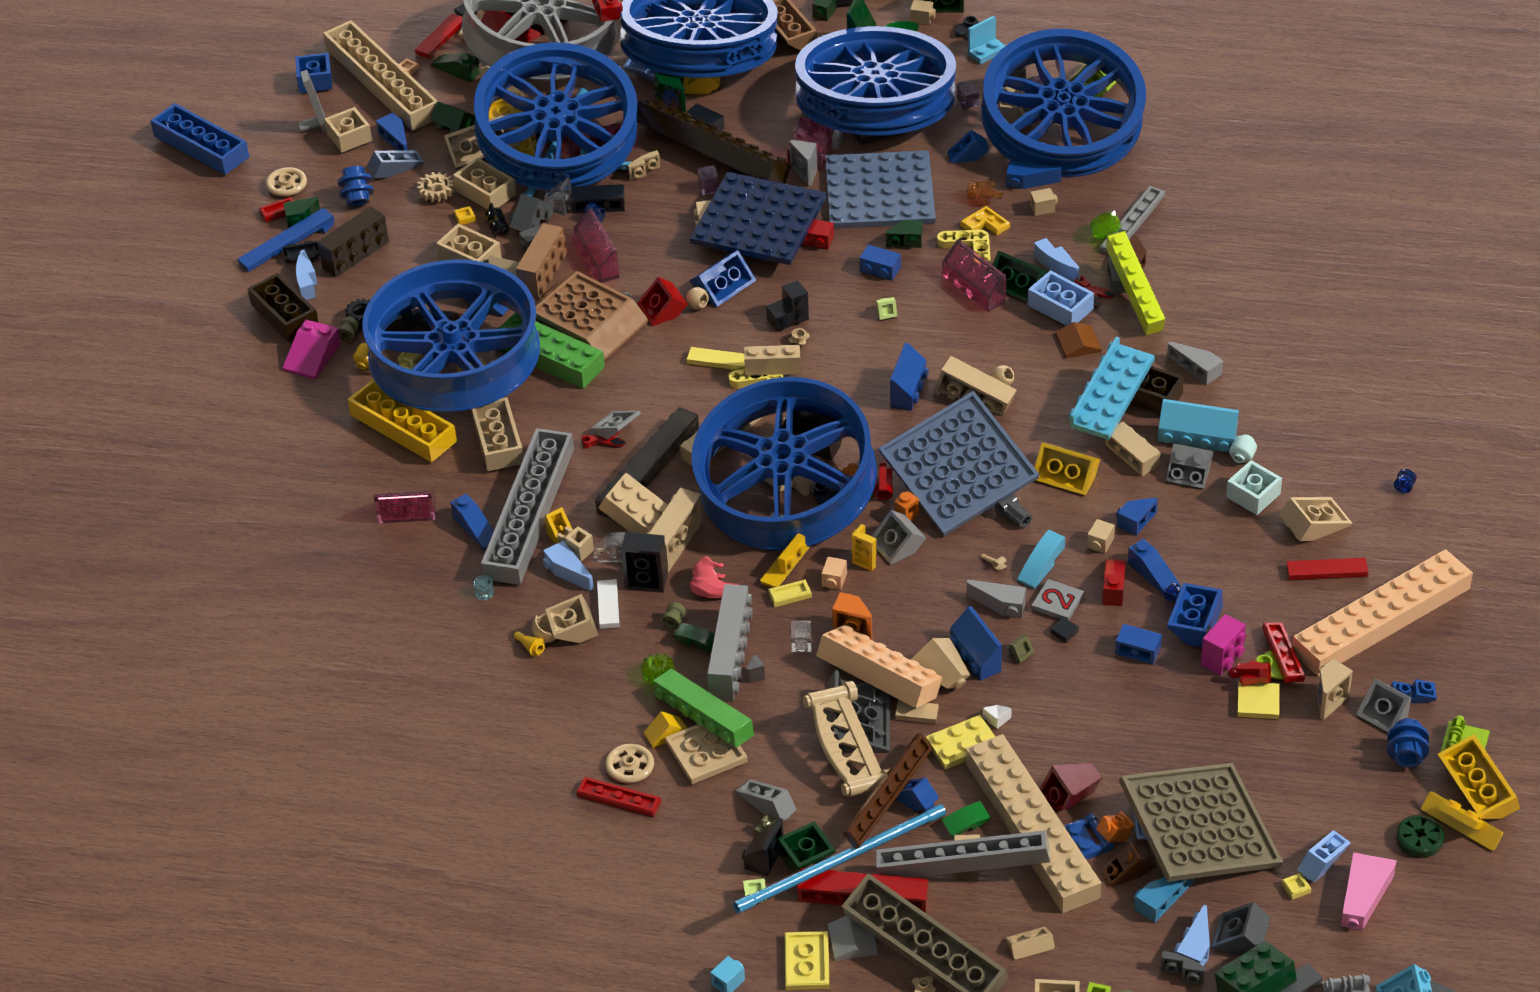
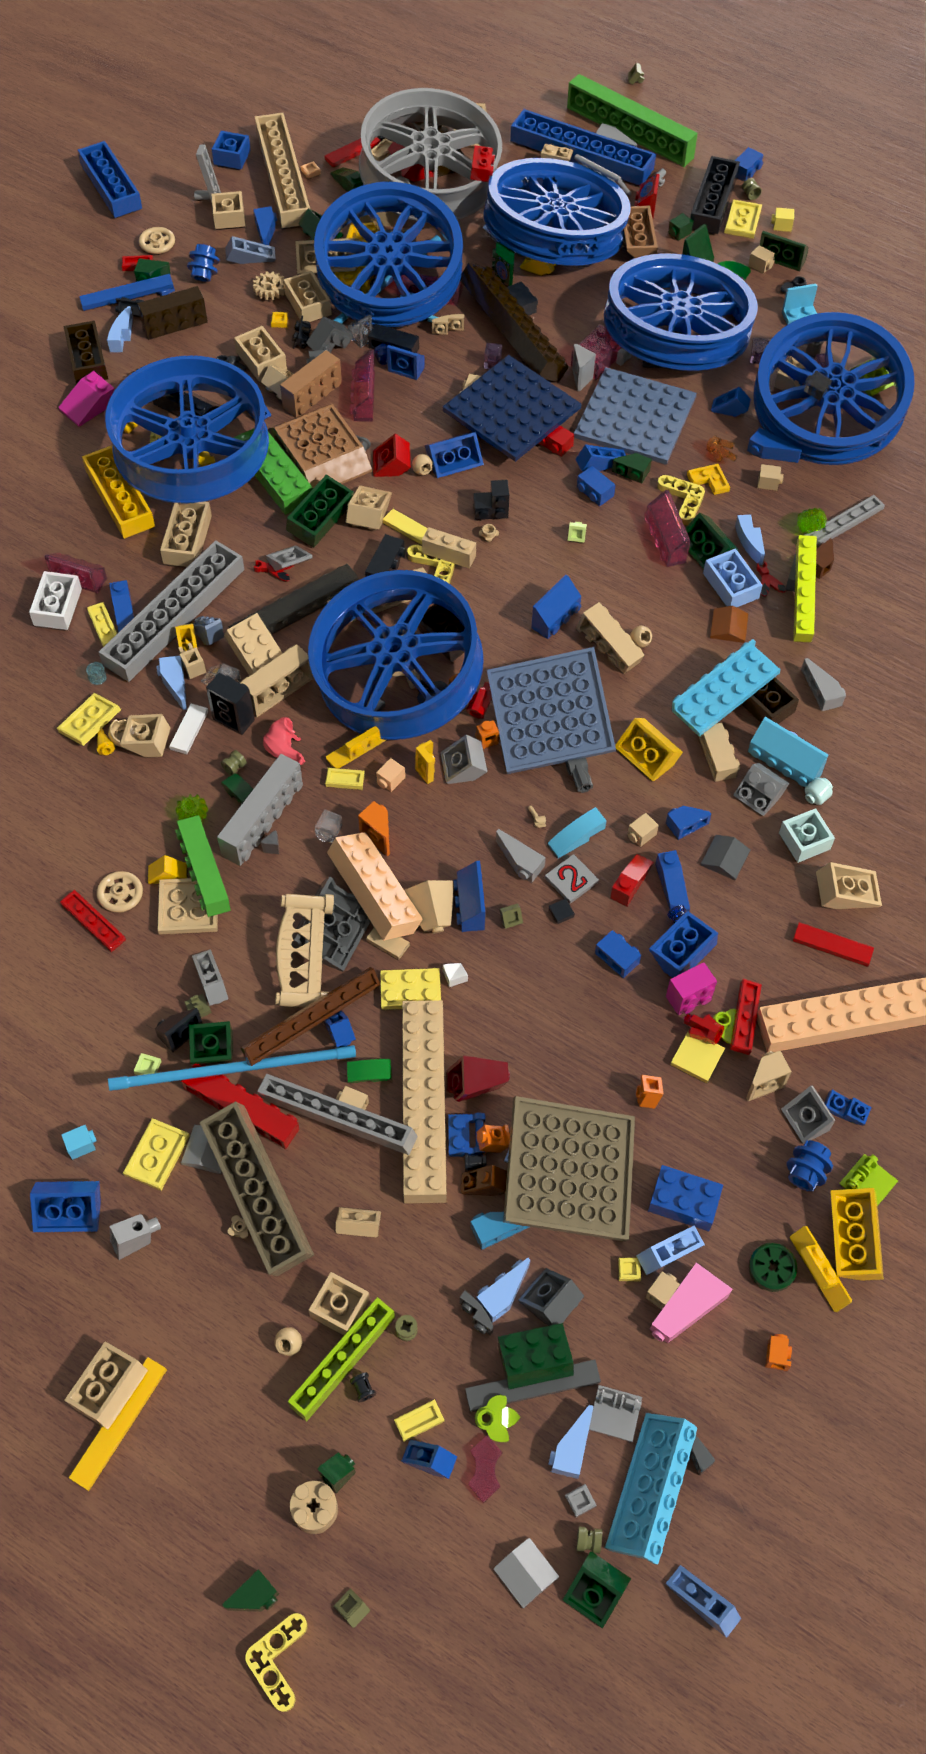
camera: 20 degrees right, 15 degrees up
(402, 537) = (55, 600): none -> white brick
(461, 545) = (102, 622): none -> light yellow tile
(502, 629) = (88, 719): none -> light yellow tile
(578, 508) = (208, 629): none -> sand blue slope
(621, 370) = (319, 511): none -> dark green brick
(622, 212) = (405, 362): none -> blue slope
(667, 354) = (368, 507): none -> tan slope
(712, 389) = (386, 556): none -> black brick
(867, 235) = (598, 457): none -> blue slope
(1050, 102) = (817, 385): none -> clear smoke brick
(1107, 854) = (475, 1162): none -> black bush
(1188, 532) = (726, 856): none -> dark grey slope
(1233, 739) = (649, 1091): none -> orange brick
(1313, 810) = (685, 1198): none -> blue brick
(1335, 888) = (662, 1289): none -> tan brick
(1463, 897) = (778, 1353): none -> orange brick

